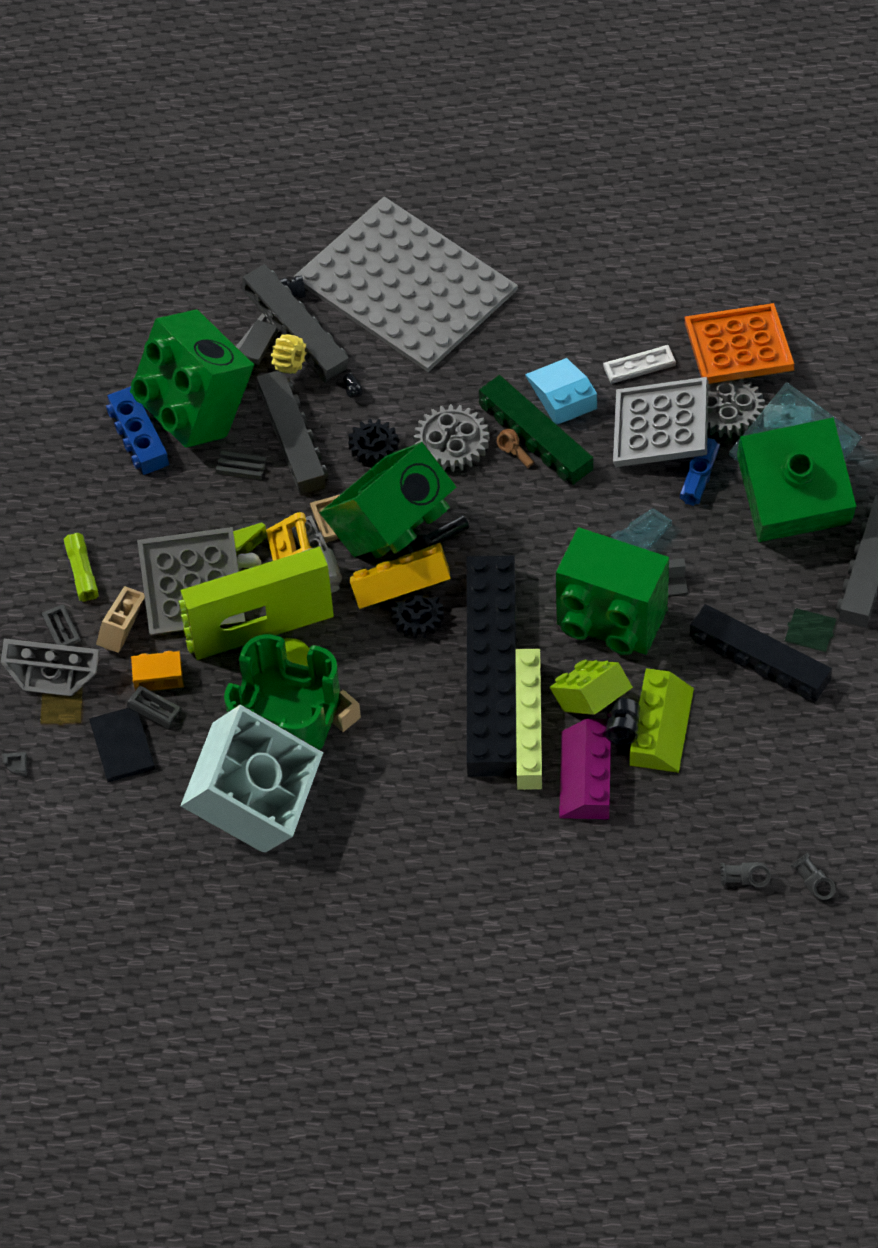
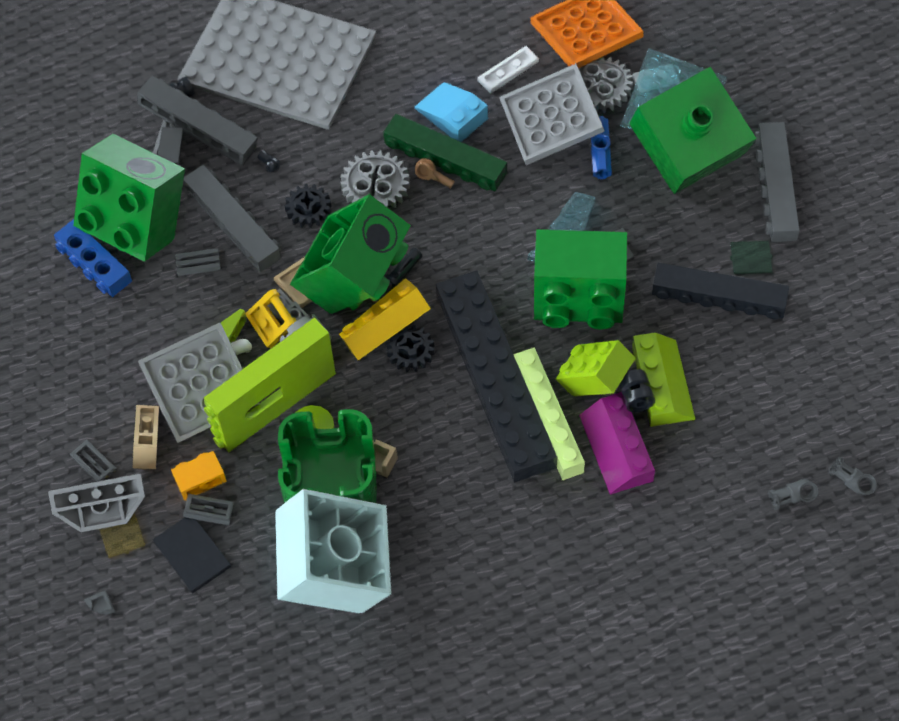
camera: 20 degrees left, 5 degrees up
(81, 568) = (89, 399): lime axle -> none
(288, 354) = (204, 149): light yellow gear -> none

